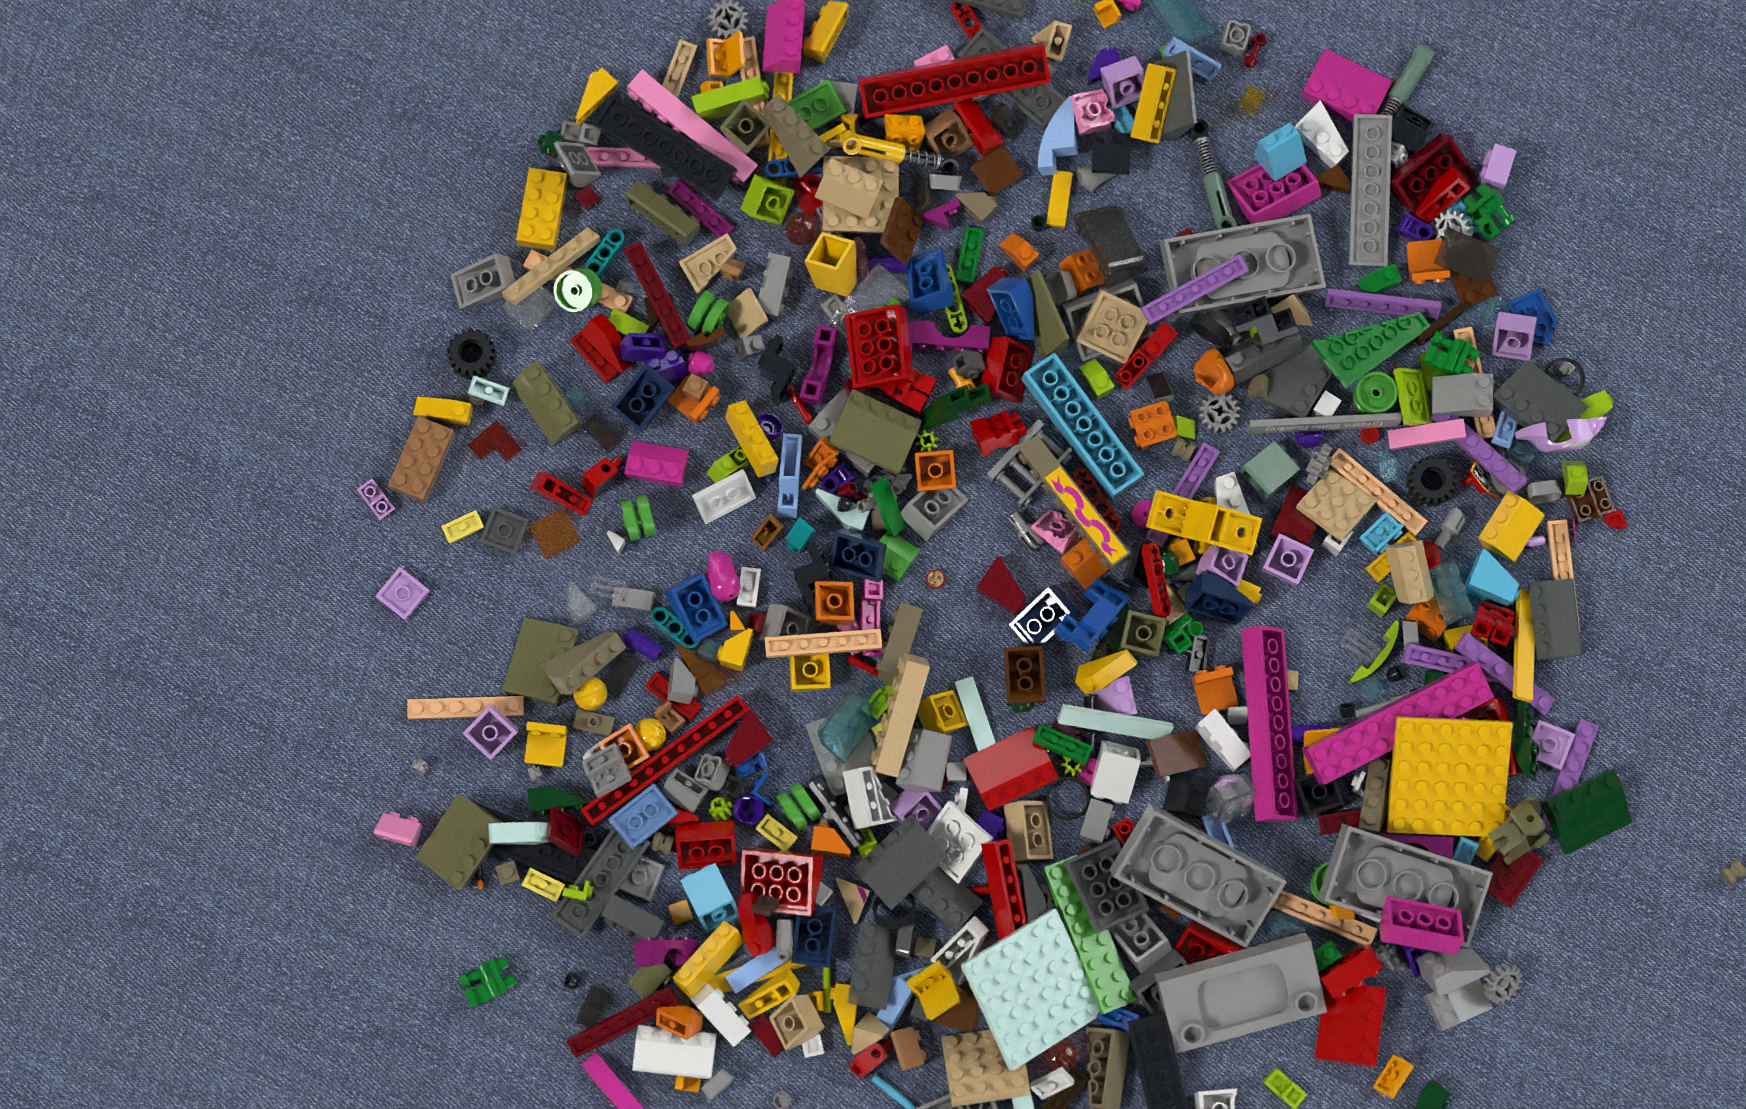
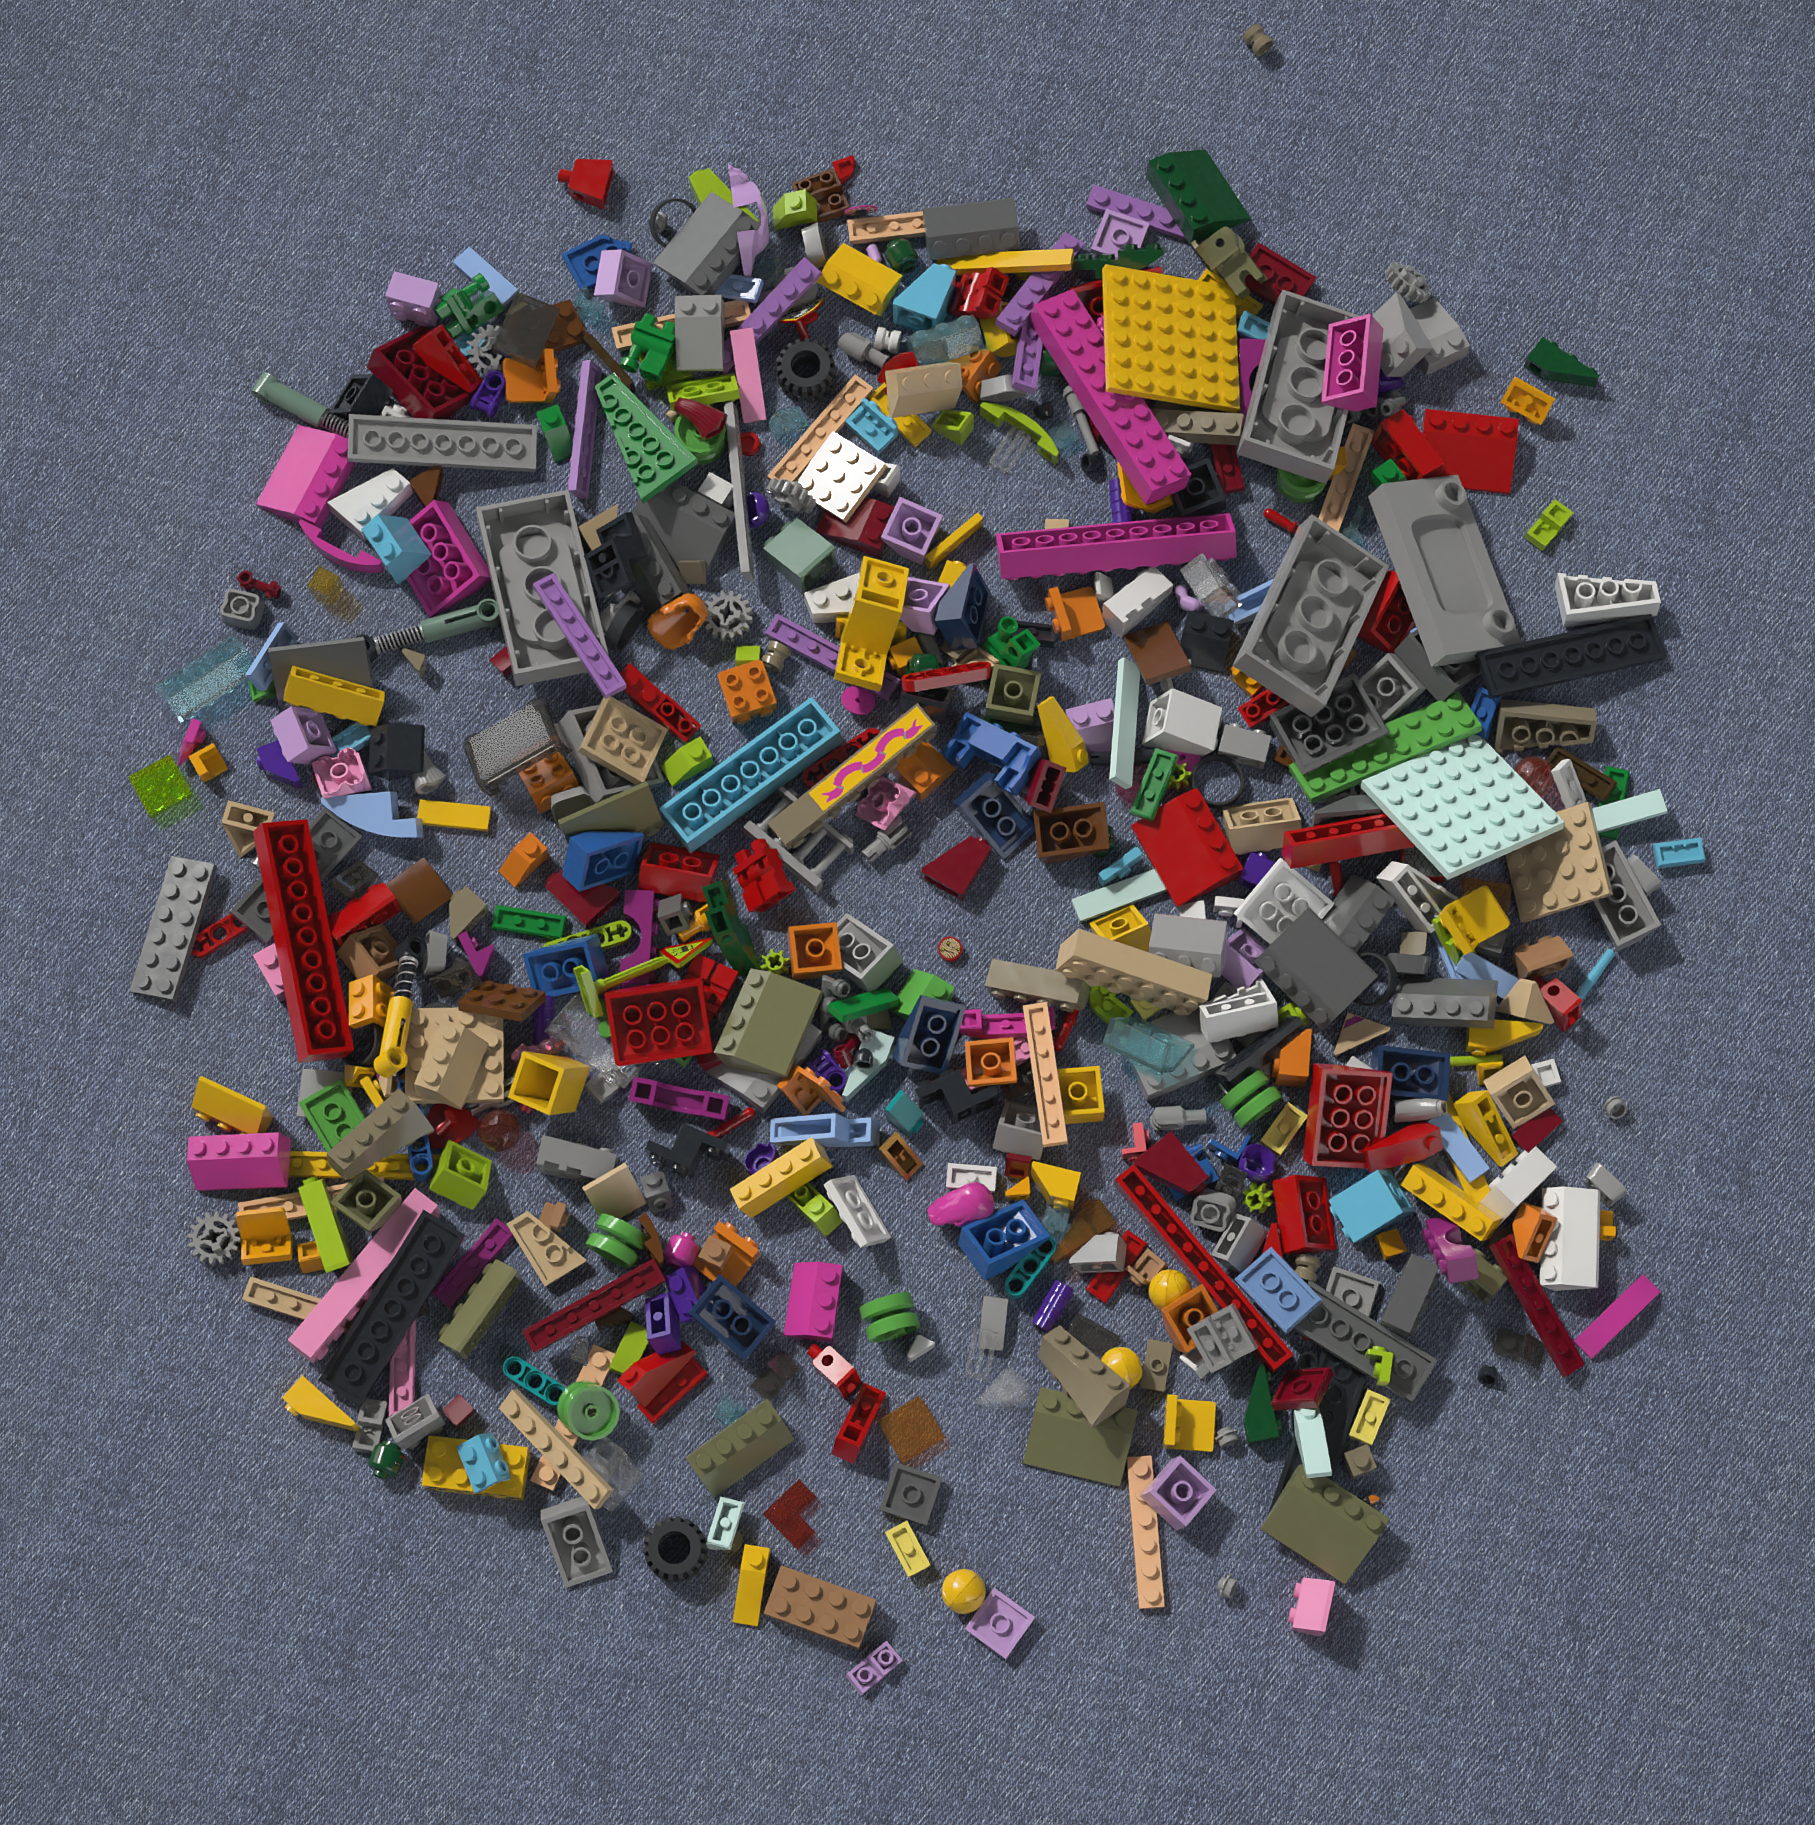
camera: 90 degrees left, 5 degrees down
(426, 566) = (963, 1591): none -> yellow piece
(492, 979) = (1497, 1475): green hips -> none
(541, 211) = (483, 1461): none -> medium azure bracket
(765, 905) = (1382, 1130): clear smoke plate -> none
(773, 719) = (1141, 1138): none -> coral bracket
(789, 747) = (1176, 1118): none -> light grey arm
(935, 364) = (675, 954): none -> lime piece
(996, 715) = (1120, 867): none -> medium azure plate
(1038, 220) = (482, 838): black hinge -> none
(1063, 653) = (1043, 785): none -> dark red slope
(1159, 387) = (698, 686): black tile -> none
(1186, 170) = (416, 661): none -> dark tan slope
(1279, 595) = (953, 541): none -> yellow tile
(1292, 93) = (363, 563): none -> dark pink slope
(1295, 861) = (1280, 520): none -> red piece
(1383, 394) = (704, 417): none -> dark red piece
(1458, 549) = (887, 340): none -> white wheel
(1520, 228) = (471, 264): none -> light blue tile
(1533, 562) = (901, 256): none -> dark green head
(1604, 311) = (589, 180): none -> red torso

